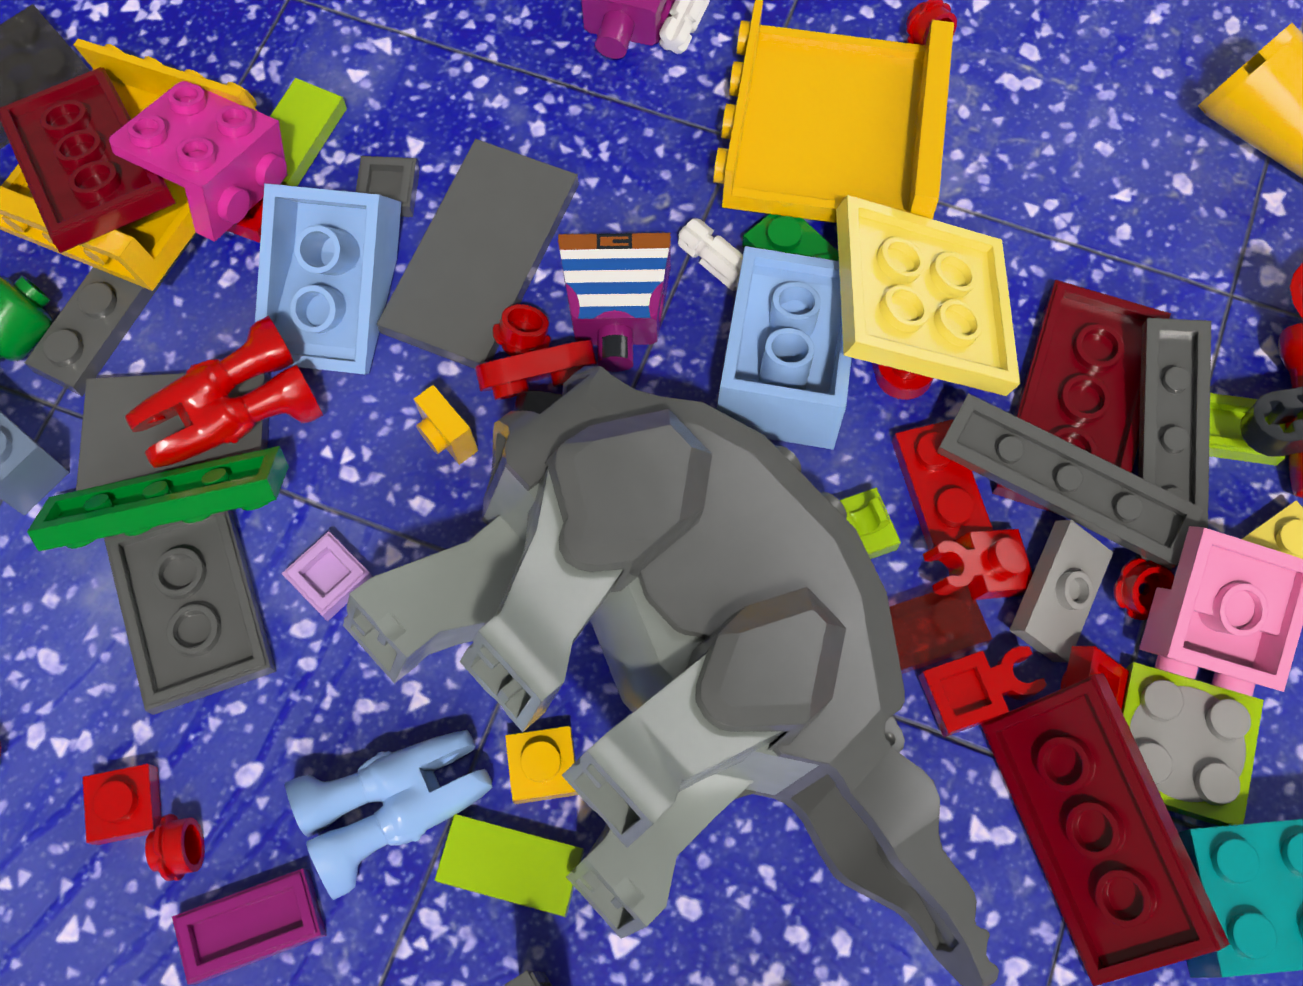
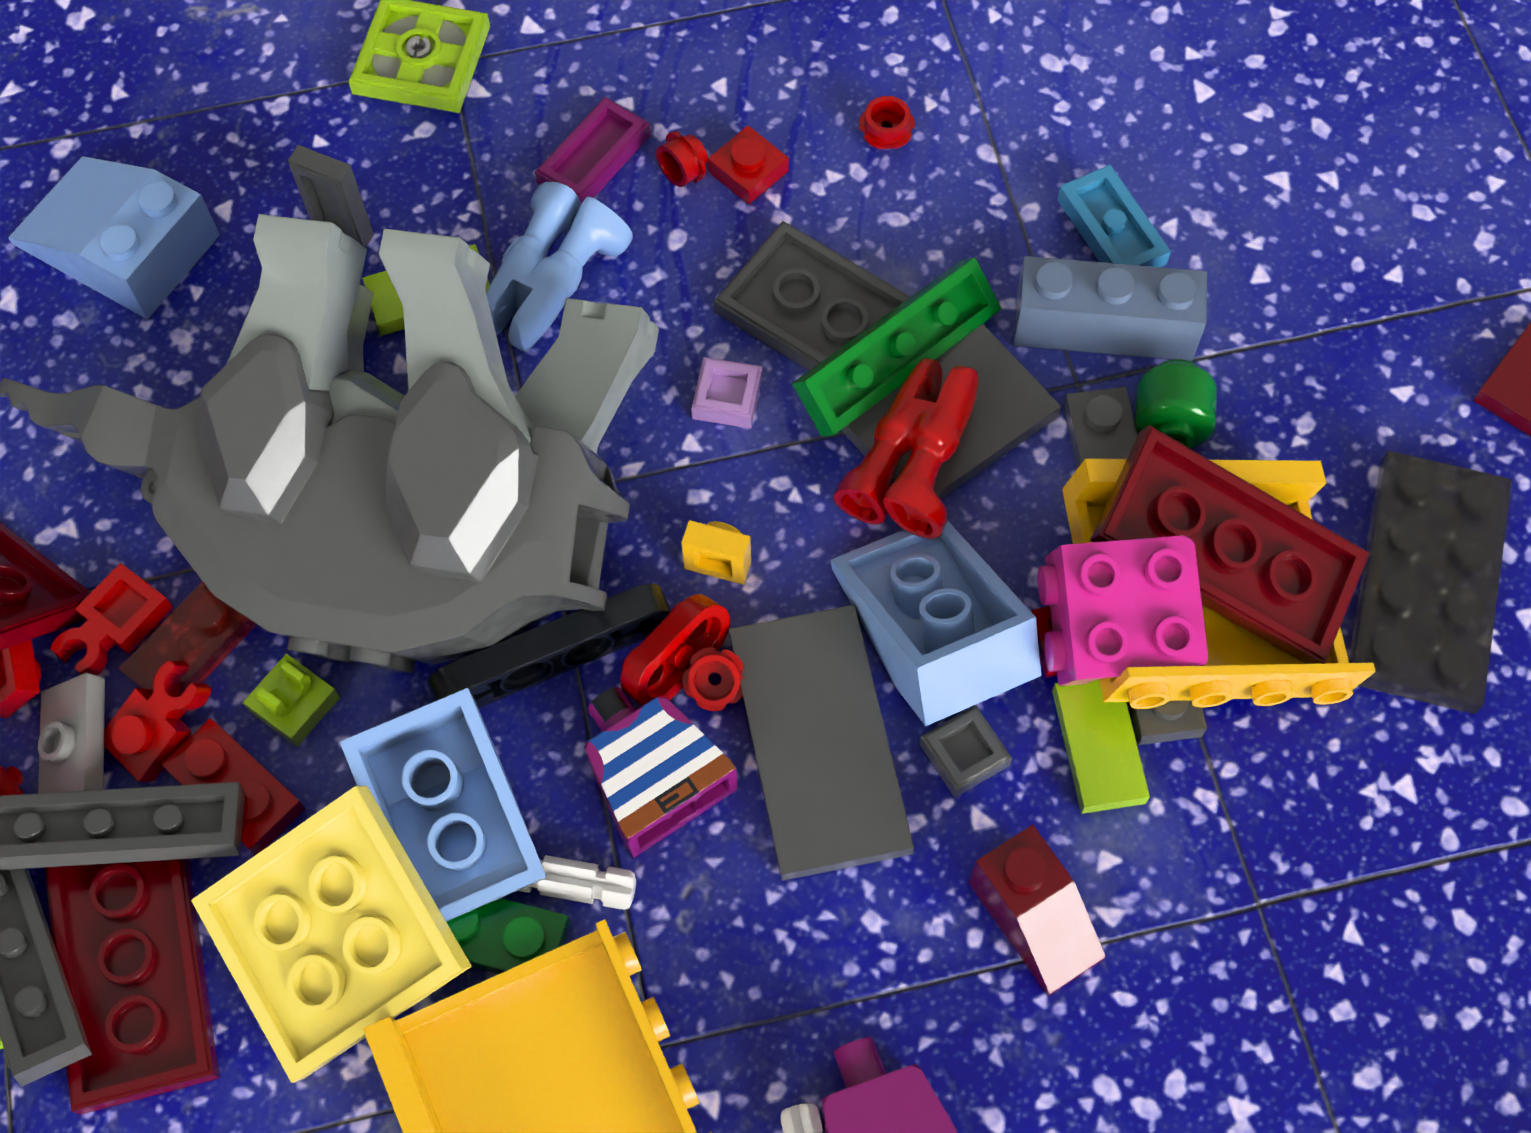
camera: 145 degrees right, 5 degrees down
(427, 64) = (1038, 909): none -> dark red slope

